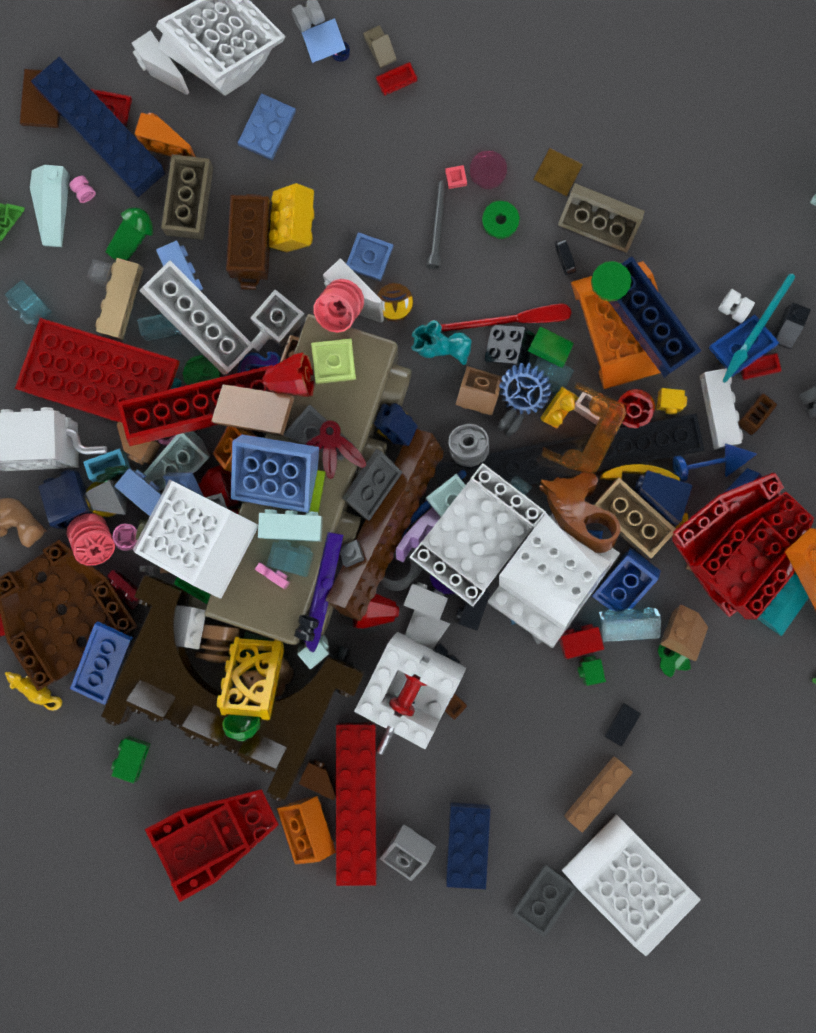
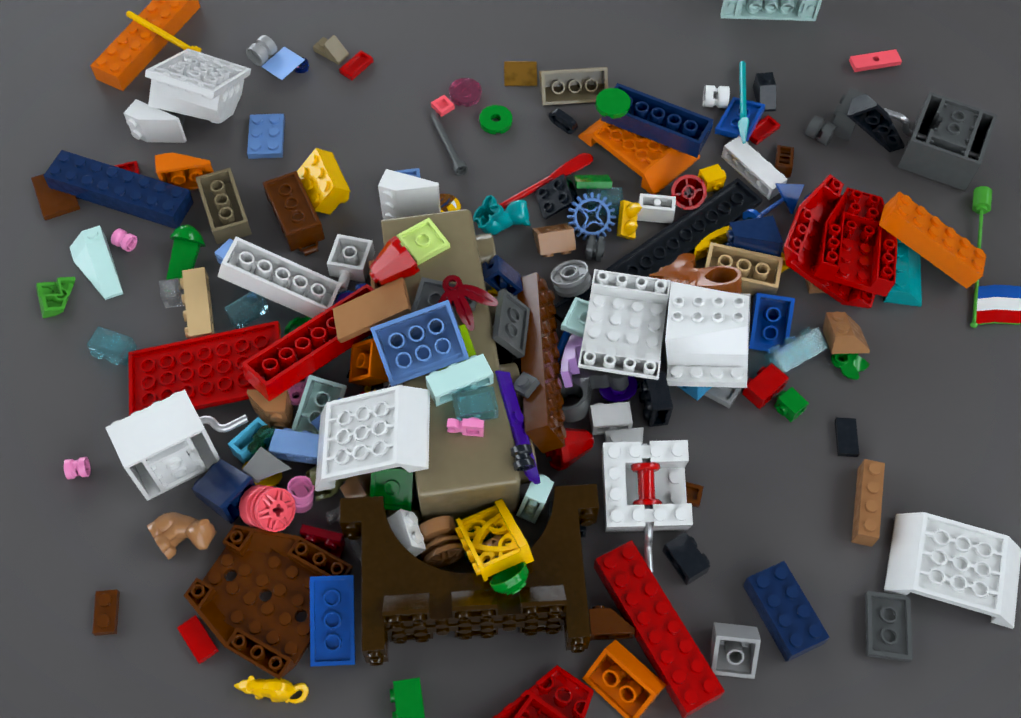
camera: 30 degrees left, 25 degrees down
(339, 305) = (398, 205): coral wheel -> none
(415, 761) = (686, 558): none -> black brick
(611, 416) = (676, 239): clear orange windscreen -> none

